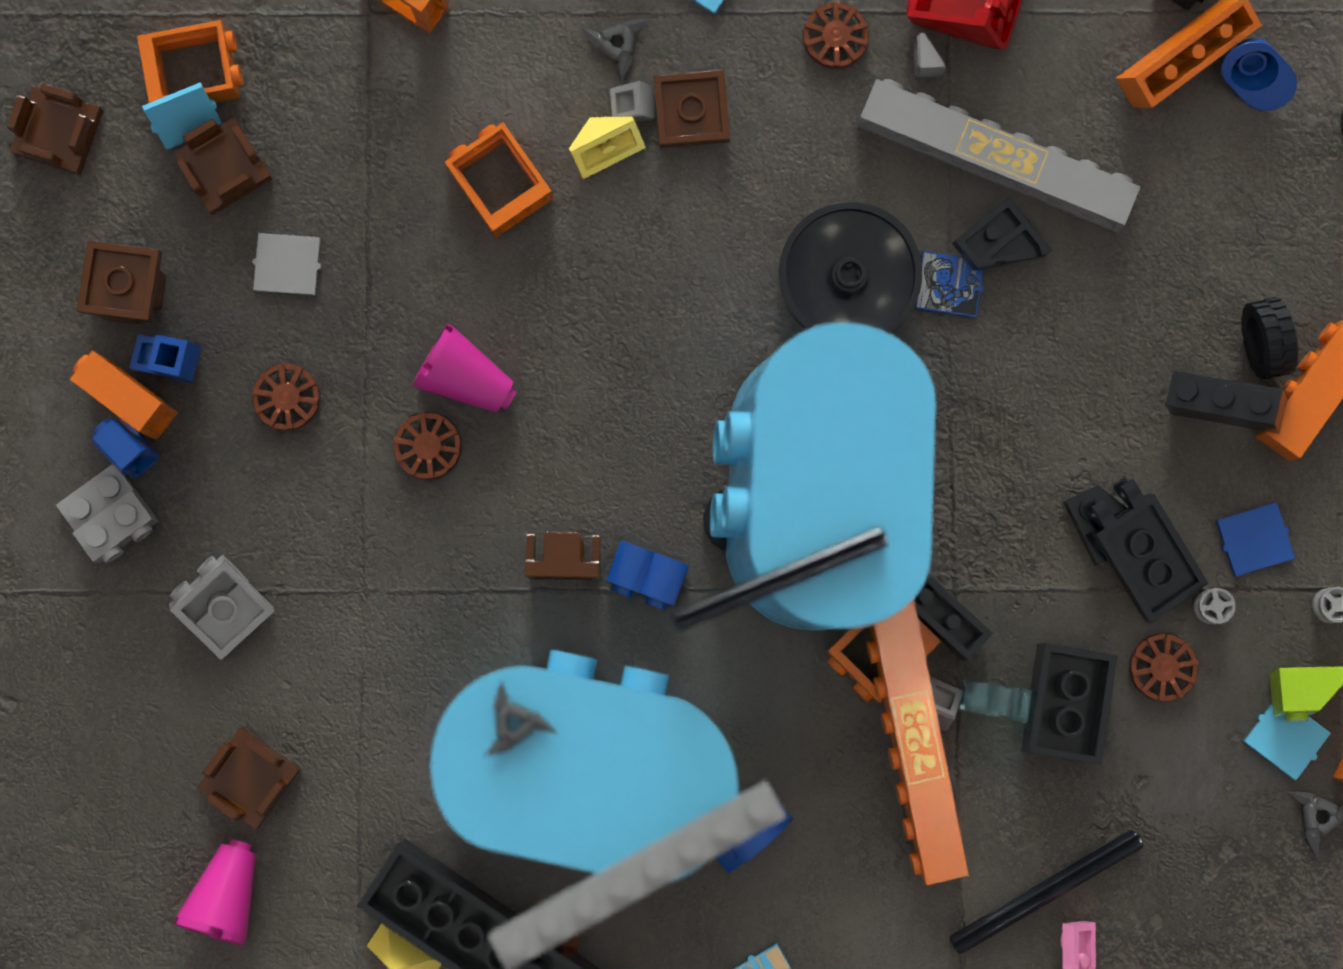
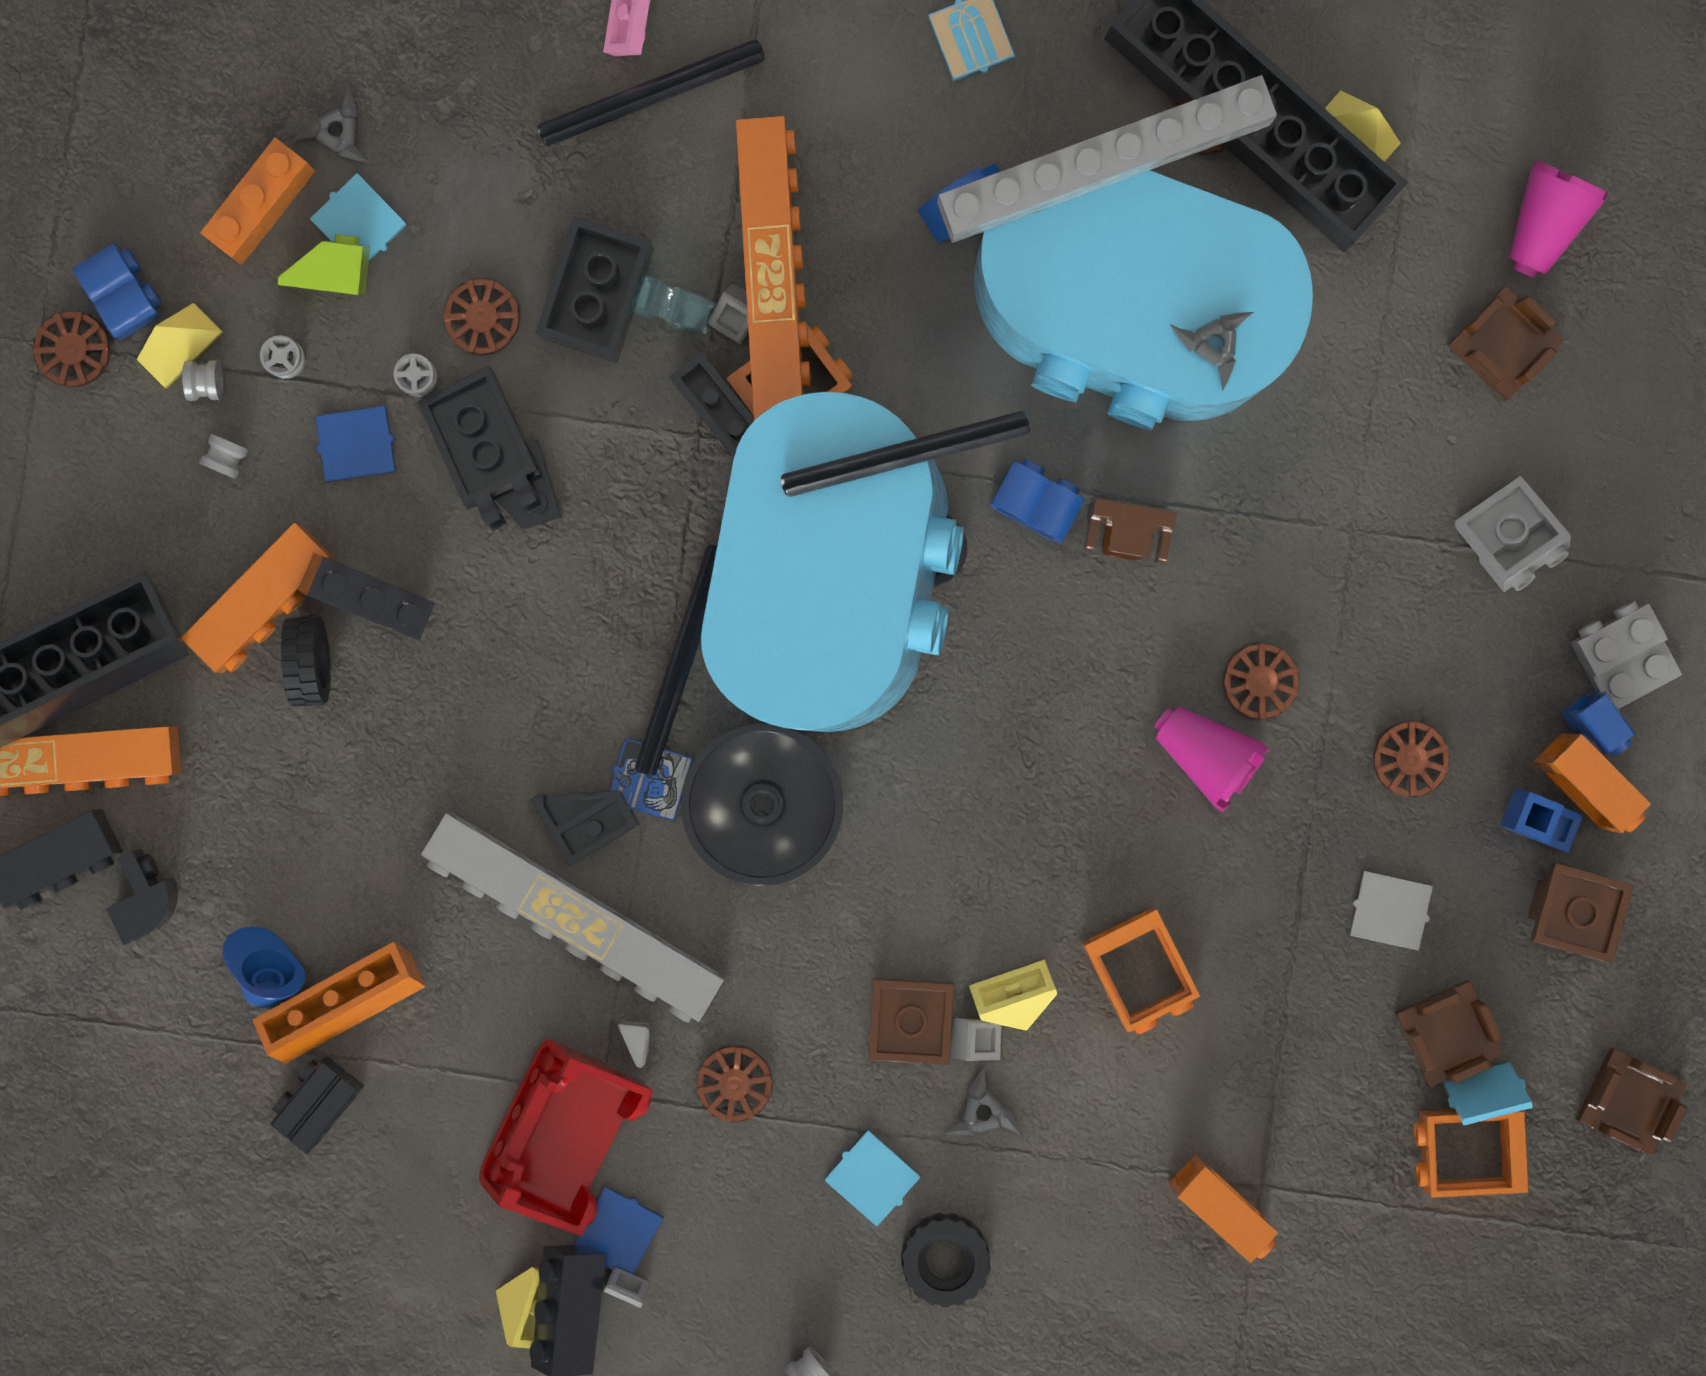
camera: 175 degrees left, 5 degrees up
(945, 359) = (677, 670): none -> black axle

